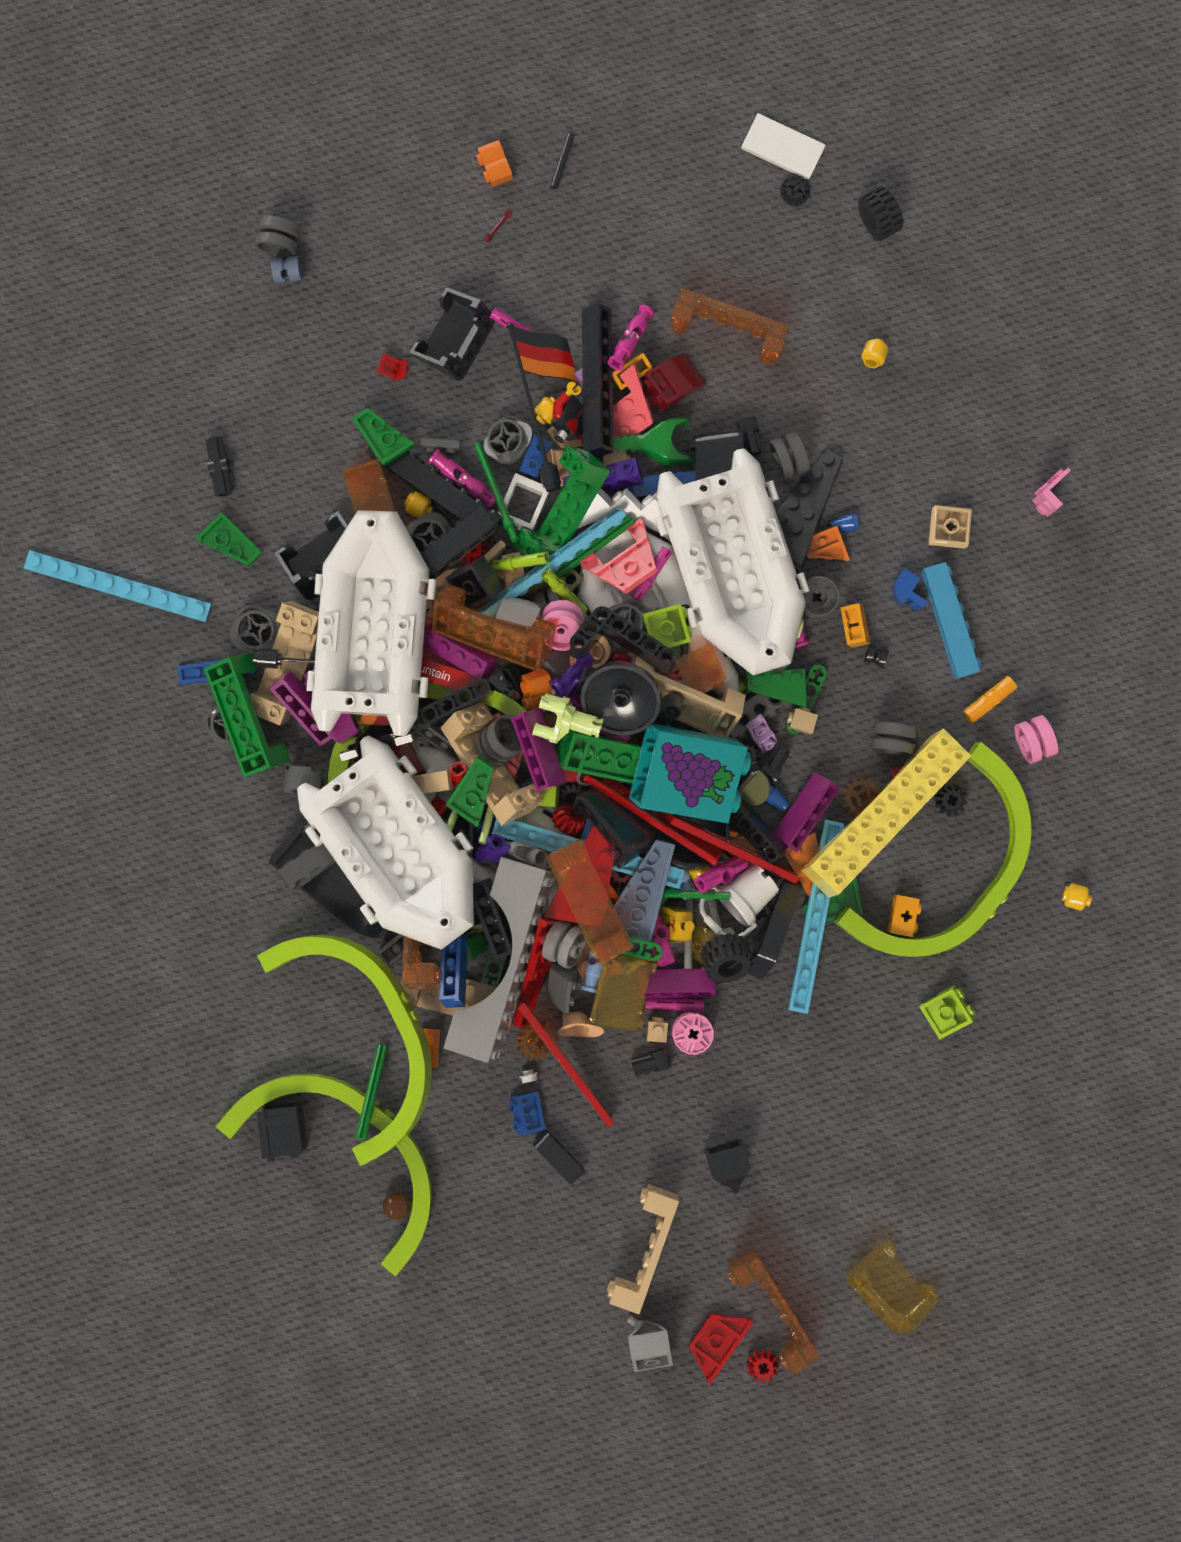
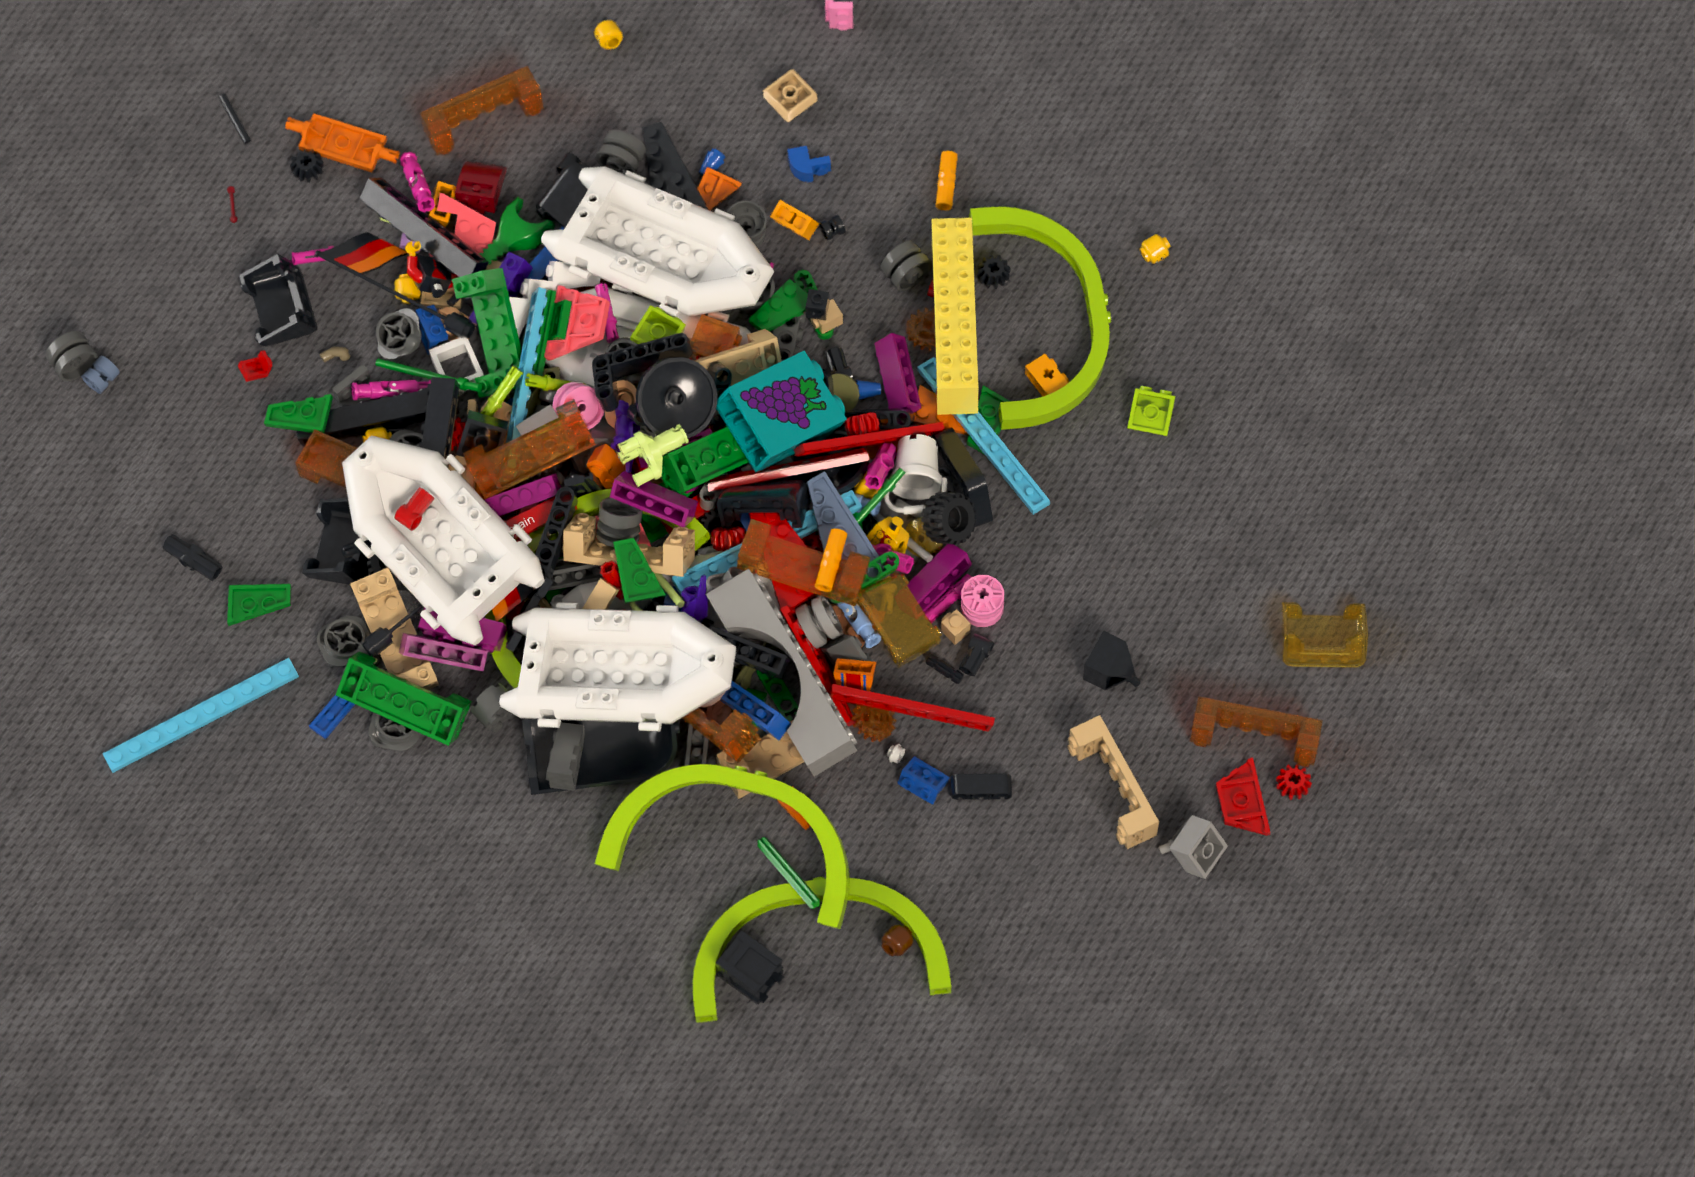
camera: 45 degrees left, 20 degrees down
(369, 594) = (411, 513): none -> red piece
(457, 409) = (333, 352): none -> dark tan arm
(495, 164) = (185, 164): orange brick -> none
(548, 1006) = (854, 673): none -> orange torso
(573, 240) = (314, 166): none -> black gear
(578, 1025) = (896, 679): light nougat piece -> none
(608, 919) = (831, 560): none -> light orange axle
(614, 253) = (342, 142): none -> orange plate
(614, 547) = (560, 320): none -> green tile
(621, 1050) = (945, 669): none -> black axle
(738, 832) = (862, 424): none -> red gear
(761, 733) = (813, 352): lavender slope -> none
(800, 711) = (817, 304): none -> black brick
(950, 620) = (860, 155): dark azure brick -> none
(1036, 739) = (1007, 171): bright pink wheel -> none

